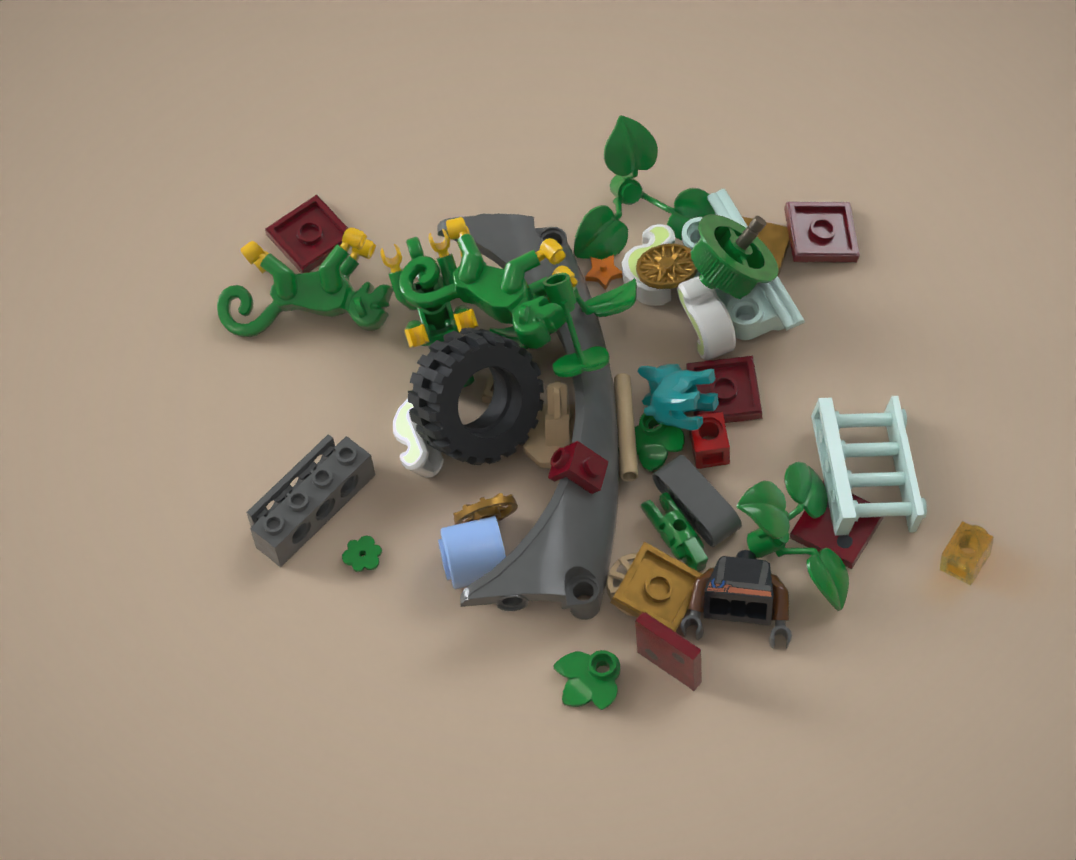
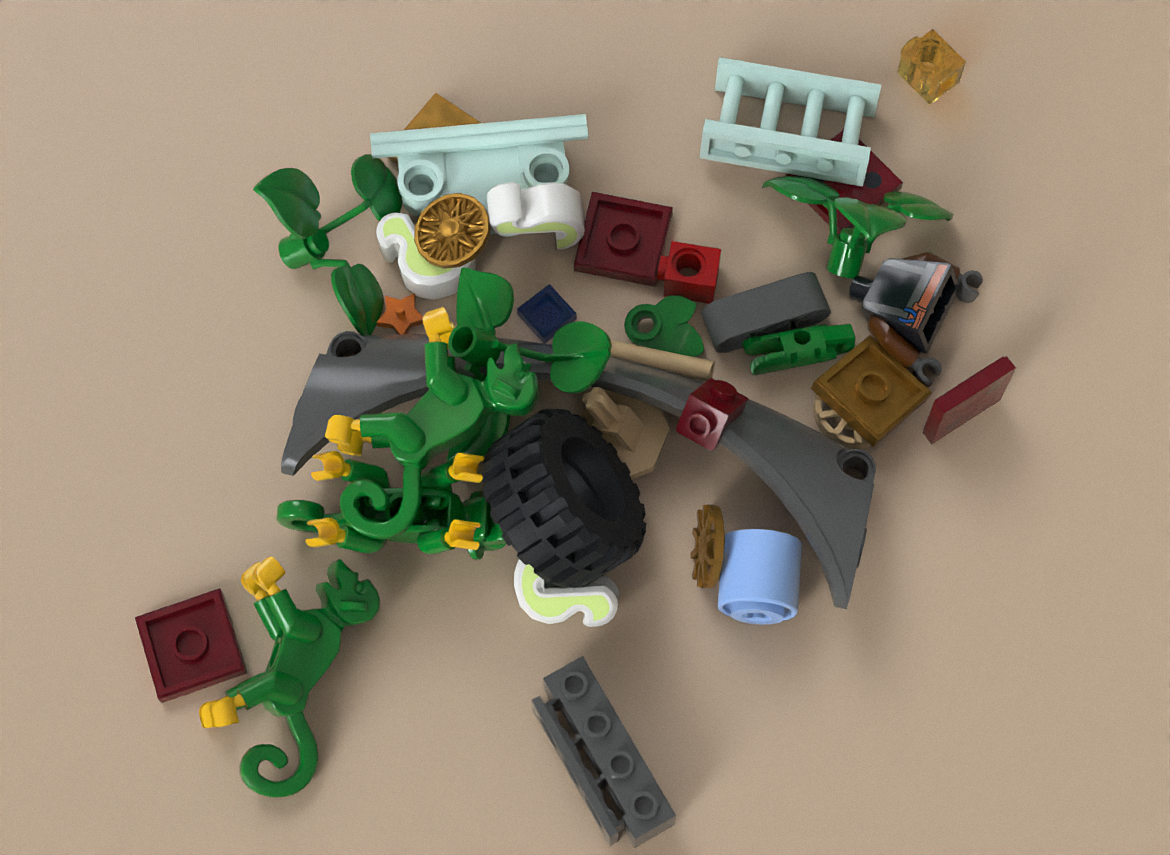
camera: 75 degrees left, 10 degrees up
(356, 549) = (710, 710): green plant -> none
(585, 682) = (956, 511): green plate -> none
(639, 355) = (546, 313): none -> clear blue tile
(675, 393) = (633, 279): teal animal -> none
(732, 255) = (491, 145): green piece -> none
(821, 232) = (454, 65): tile -> none

